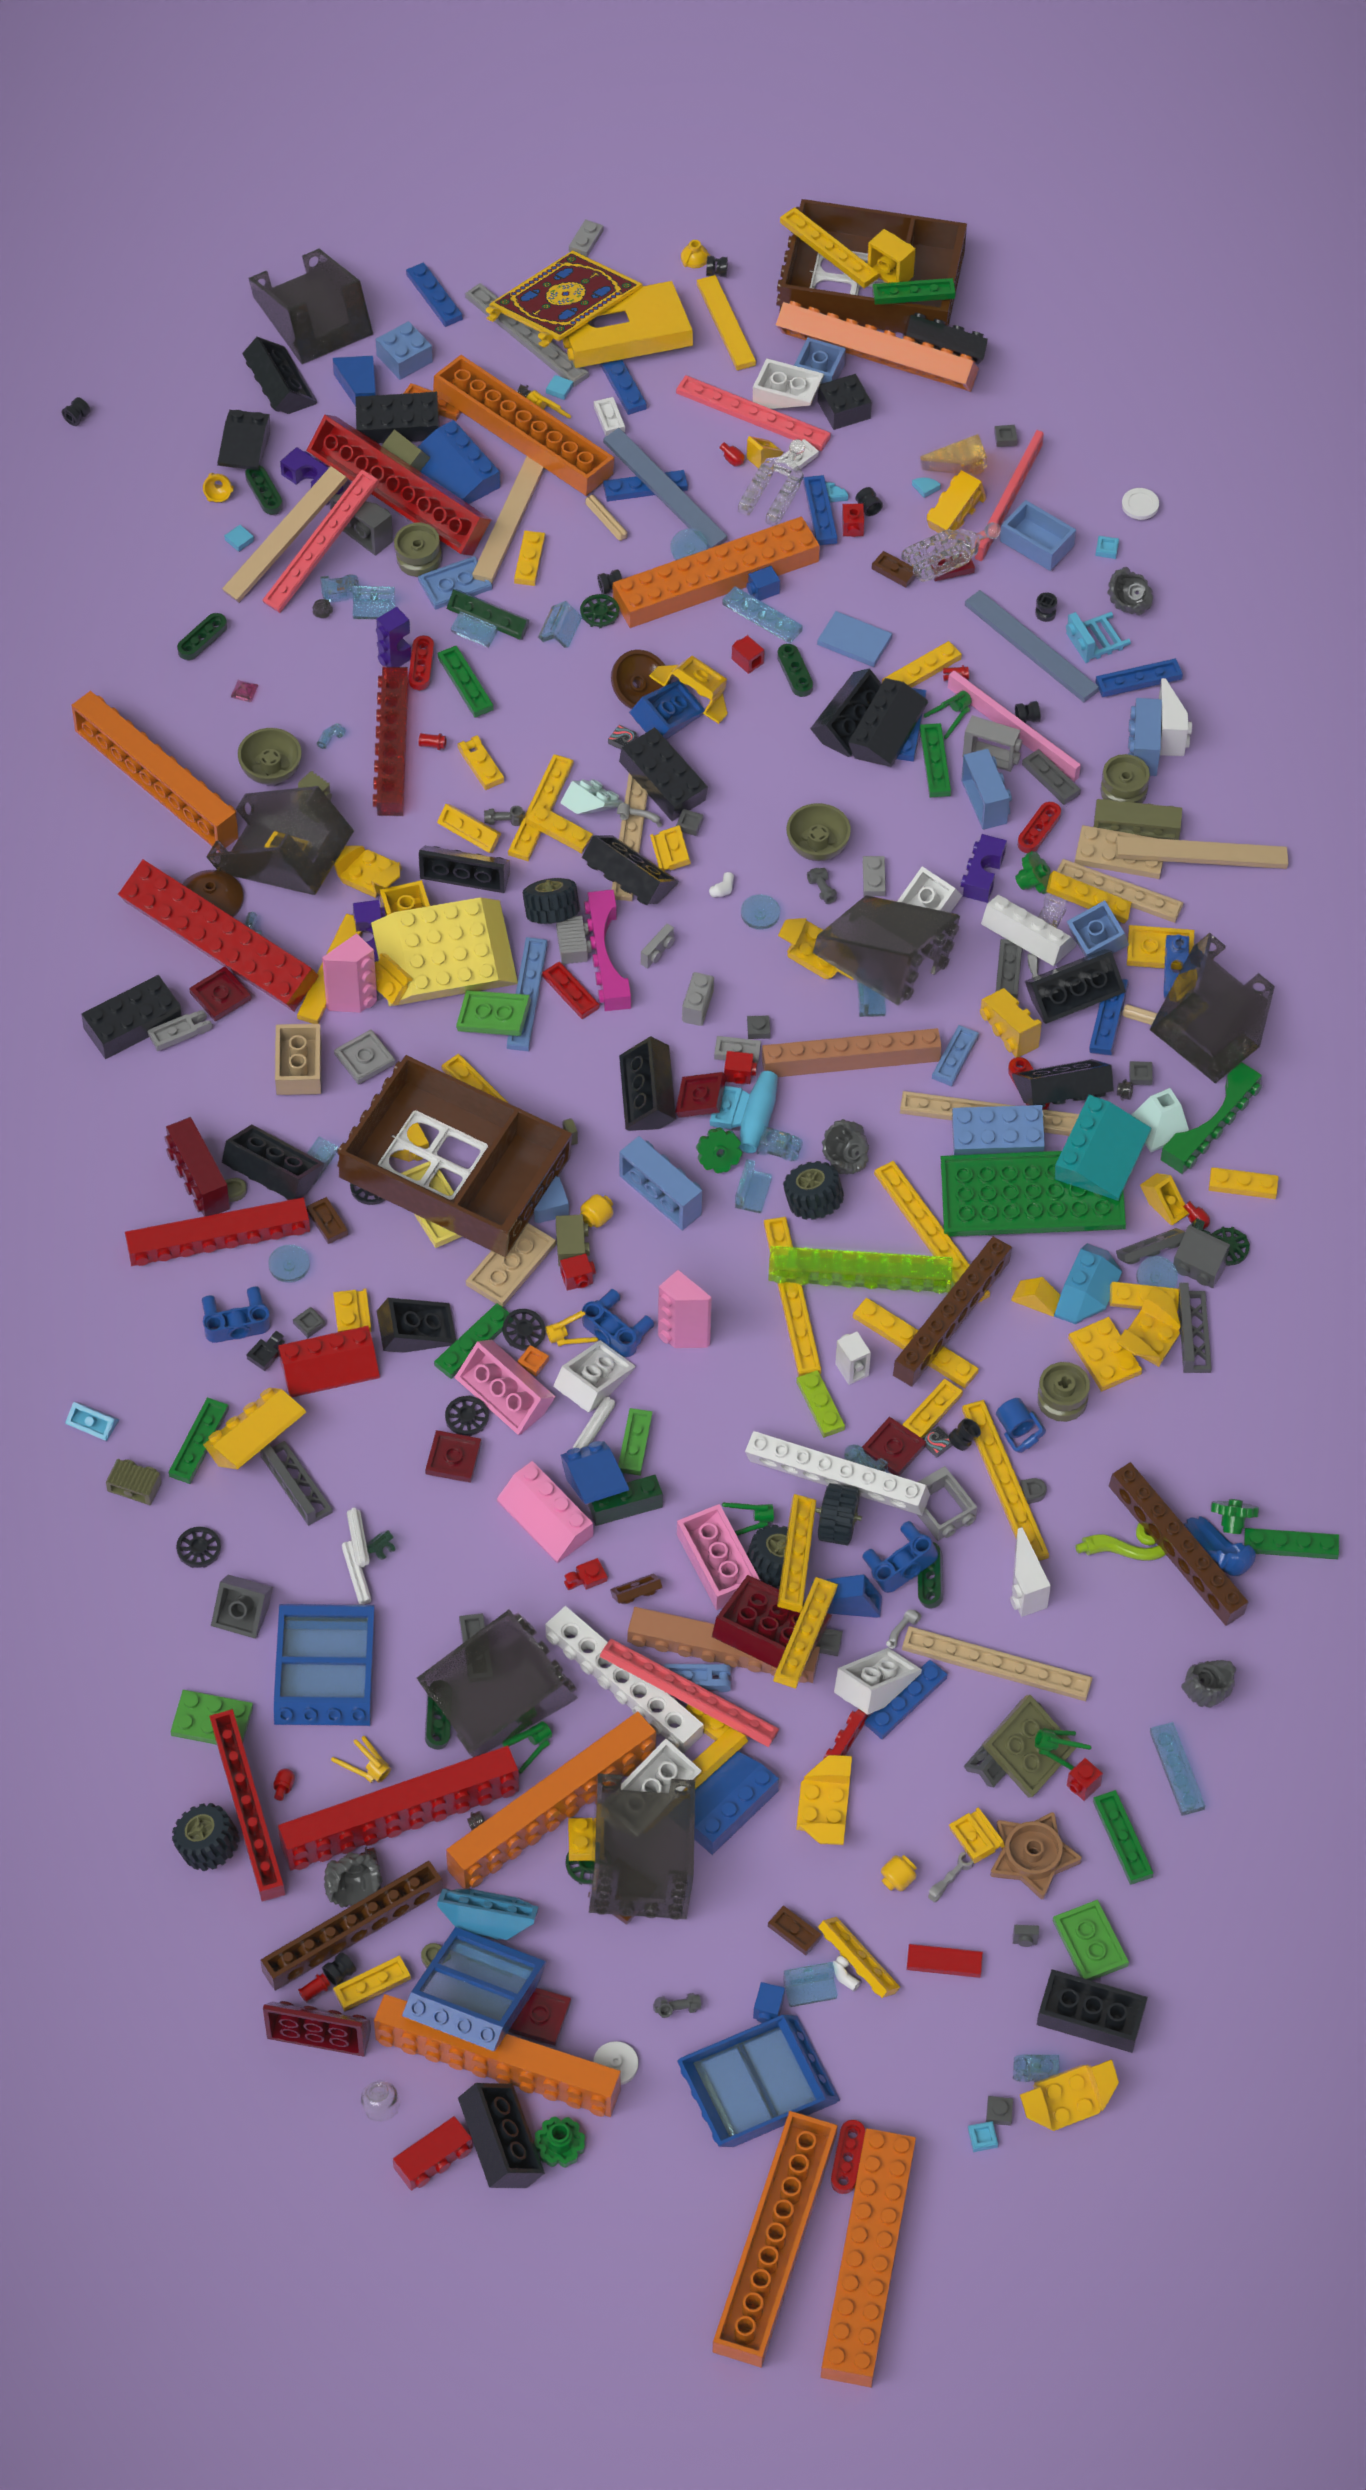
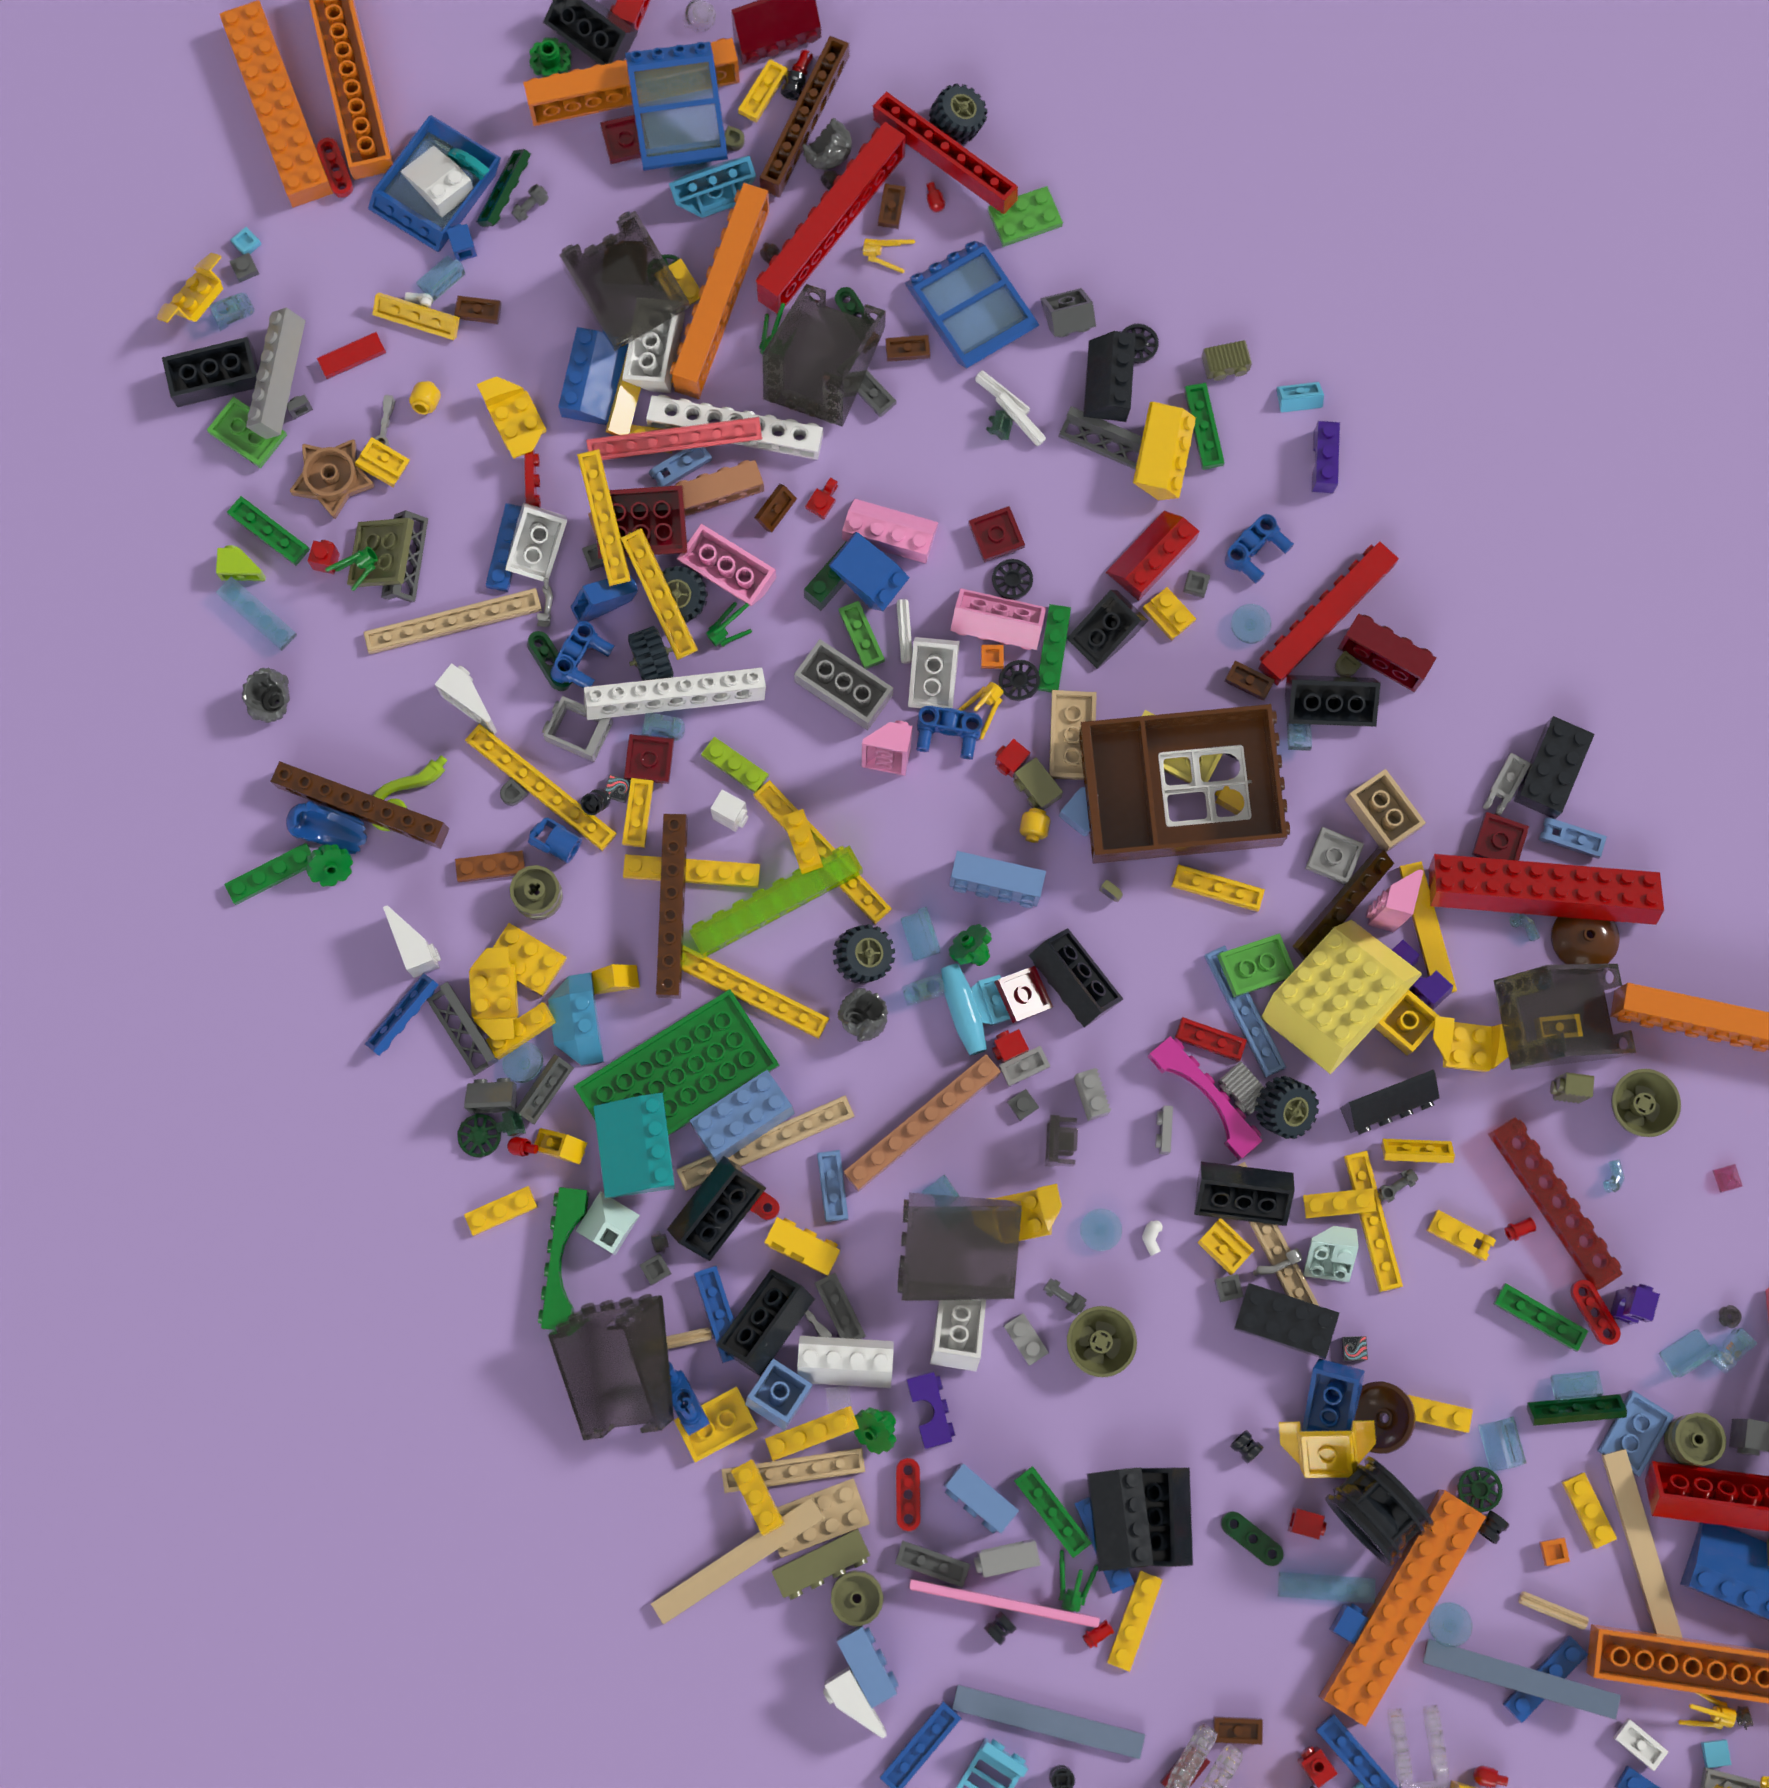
camera: 145 degrees right, 20 degrees up
(103, 1362) = (1326, 467): none -> dark purple arch
(160, 963) = (1573, 838): none -> medium blue plate
(253, 1516) = (1109, 376): none -> black slope
(265, 1353) = (1210, 531): black plate -> none
(333, 1793) = (891, 206): none -> reddish brown plate
(379, 1019) = (1345, 901): none -> dark brown plate
(391, 979) = (1366, 932): yellow plate -> none
(410, 1658) = (907, 348): none -> reddish brown plate
(576, 546) = (1554, 1551): none -> orange plate
(591, 668) = (1442, 1414): none -> yellow plate
(619, 2057) = (548, 141): white piece -> none
(681, 1404) = (843, 684): none -> light grey brick
(692, 617) = (1379, 1510): none -> black wheel
(692, 2034) = (506, 183): none -> dark green plate
(712, 2054) = (467, 162): none -> teal tile
(754, 2075) = (438, 180): none -> white slope
(755, 720) = (1246, 1446): none -> black wheel
(755, 976) = (1060, 1141): none -> clear smoke panel
(806, 1298) = (802, 841): none -> yellow plate
(854, 639) = (1220, 1615): medium blue tile -> none
(1030, 1967) = (275, 373): none -> light grey brick
(1090, 1442) = (489, 866): none -> dark orange plate
(1159, 878) = (757, 1497): none -> yellow plate
(1170, 1819) = (236, 564): none -> lime slope
(1197, 1397) = (415, 951): none -> white slope
(1240, 1366) = (401, 1014): none -> blue plate

